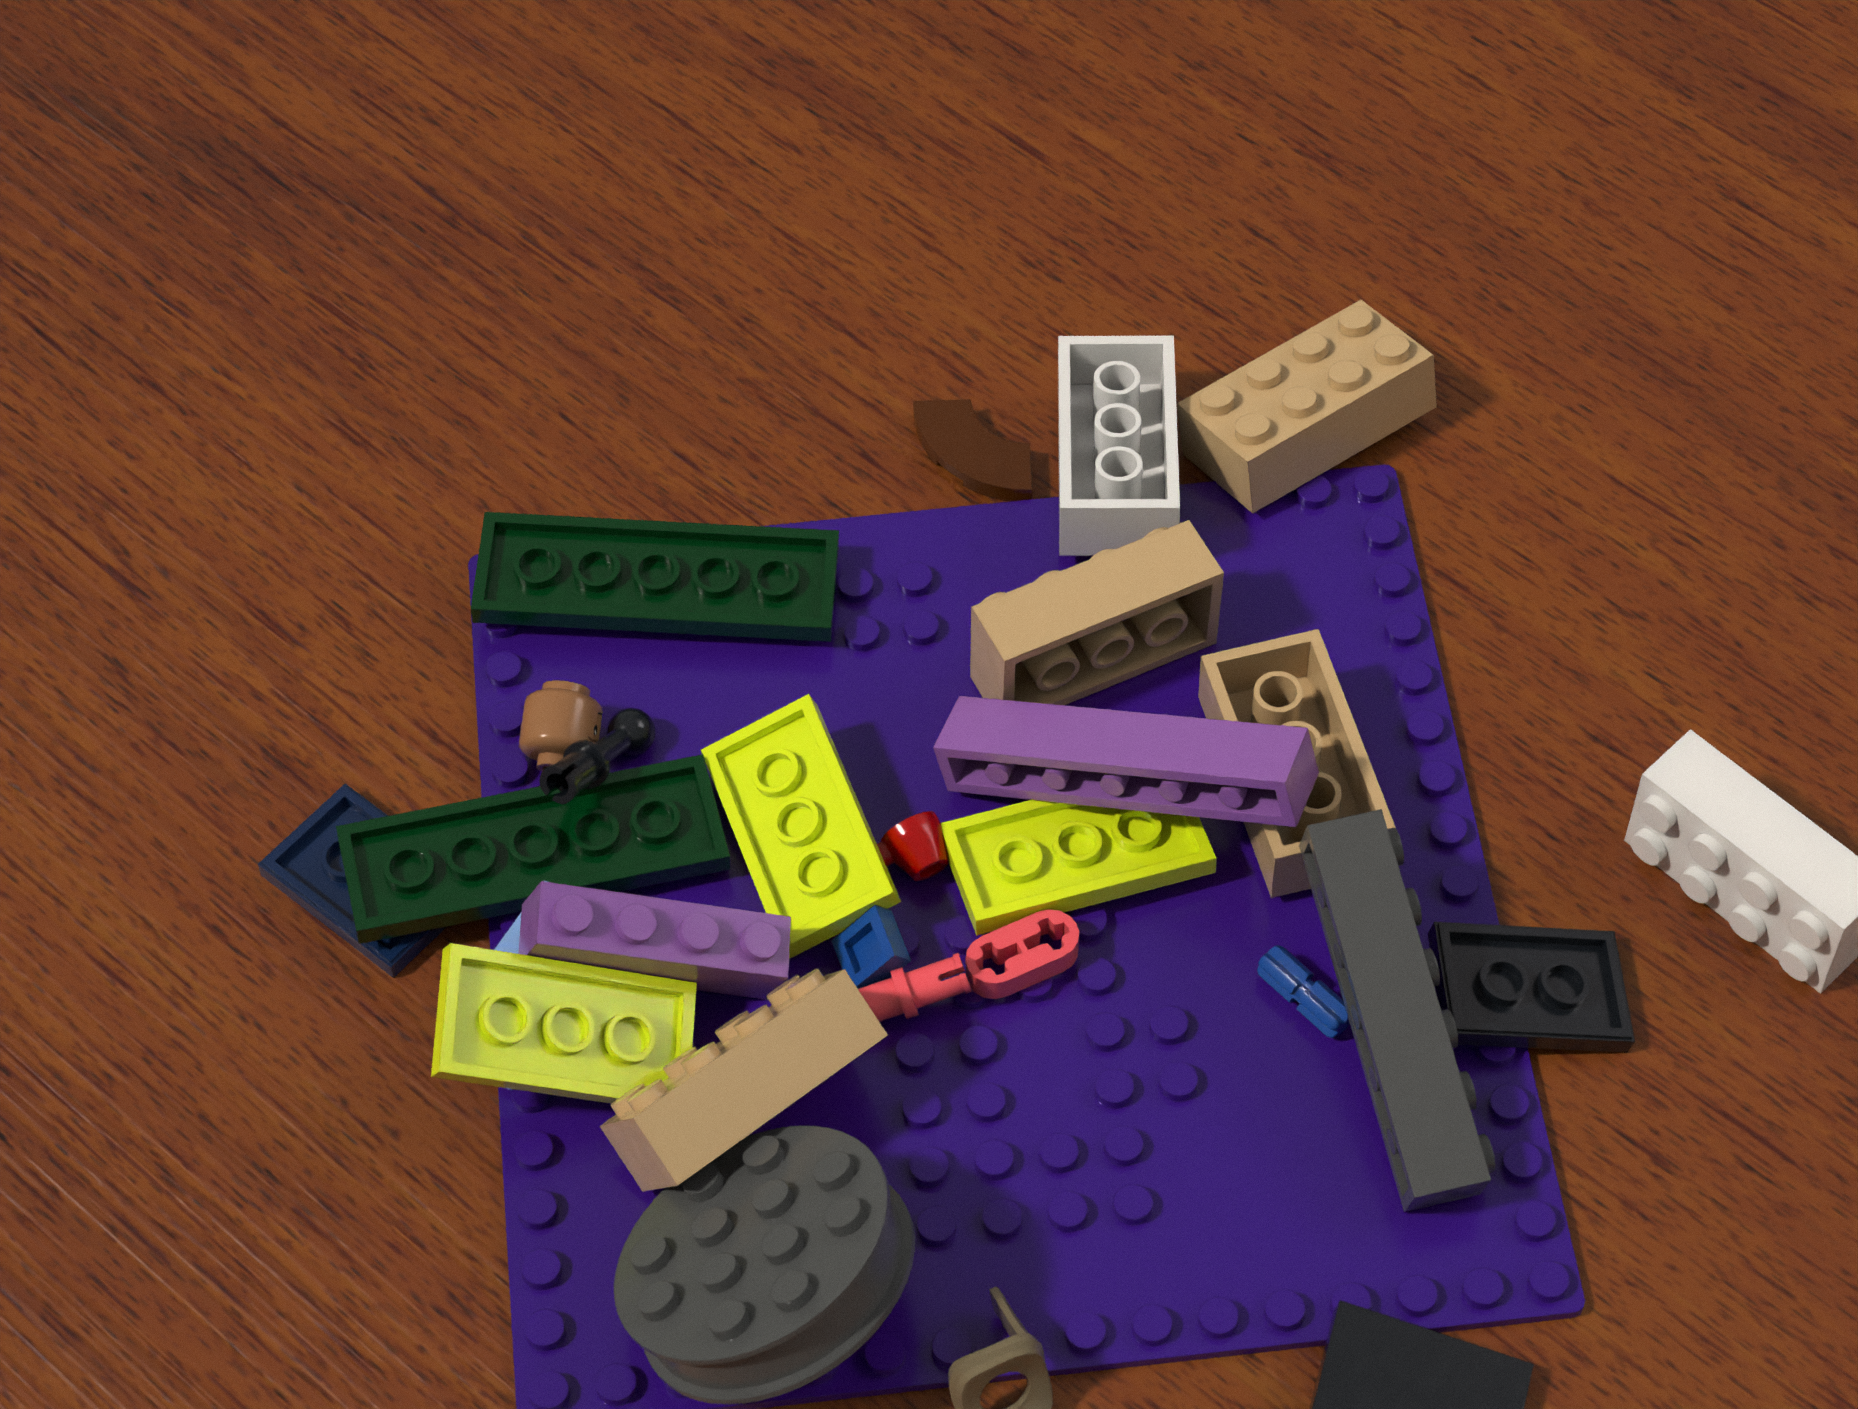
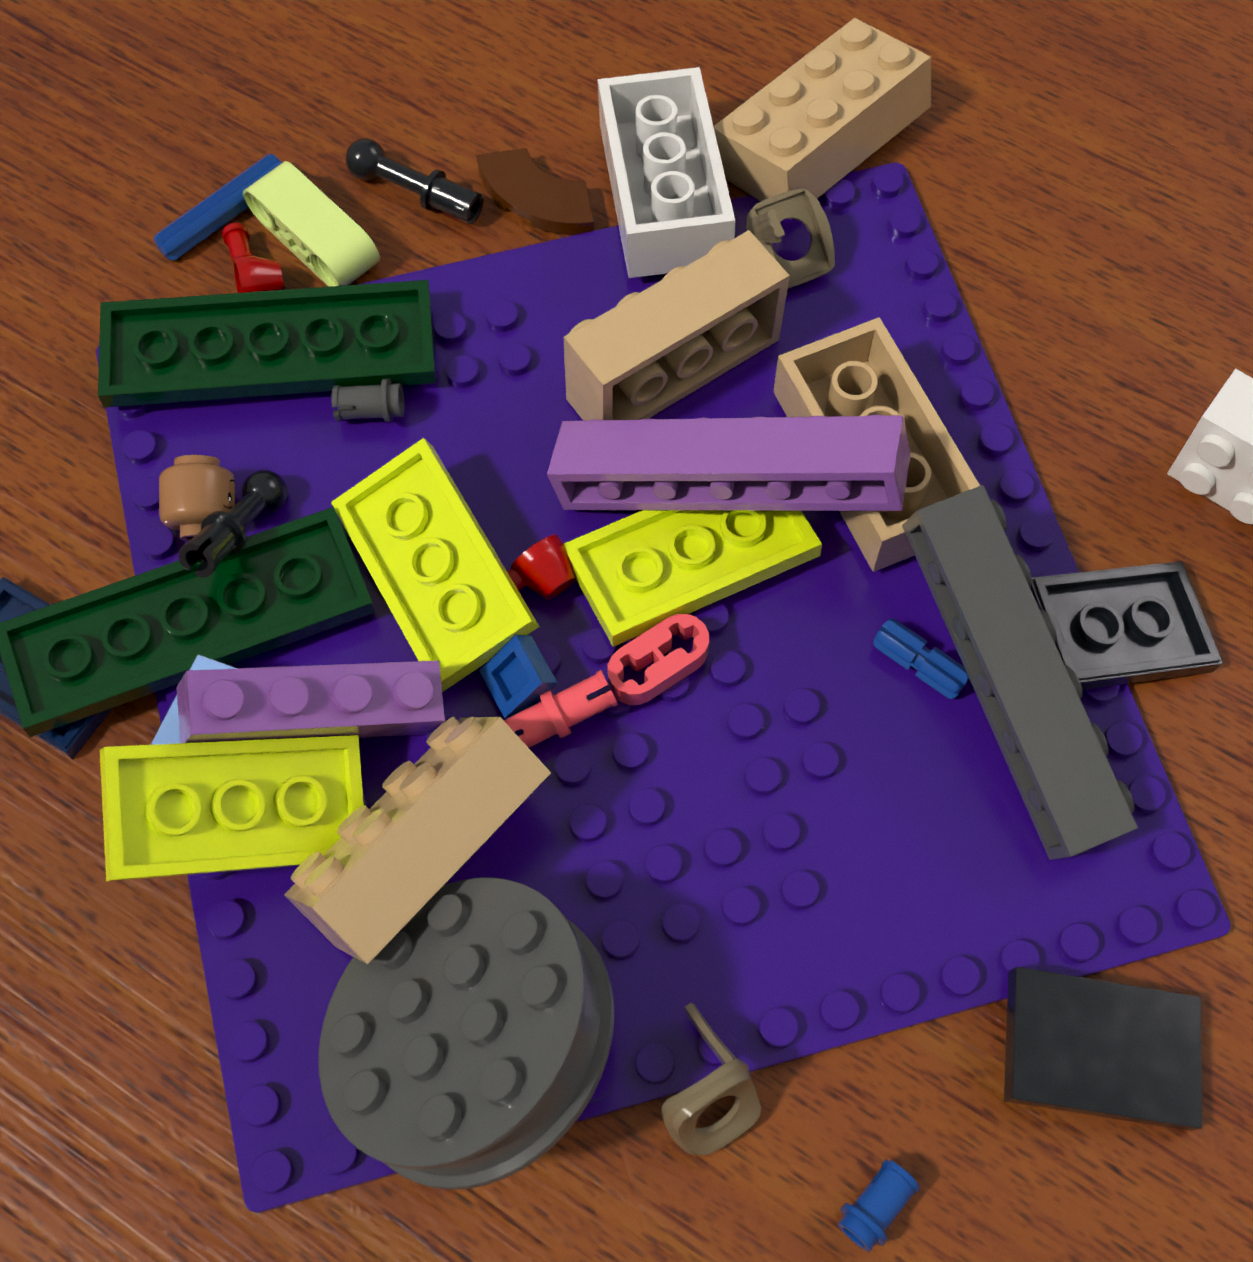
camera: 10 degrees left, 10 degrees up
(623, 424) = (211, 212): none -> blue axle
(646, 498) = (250, 271): none -> red bar
(720, 457) = (311, 225): none -> yellowish green beam
(755, 651) = (368, 401): none -> dark grey pin
(792, 393) = (368, 161): none -> black pin
(1259, 500) = (800, 205): none -> dark tan piece

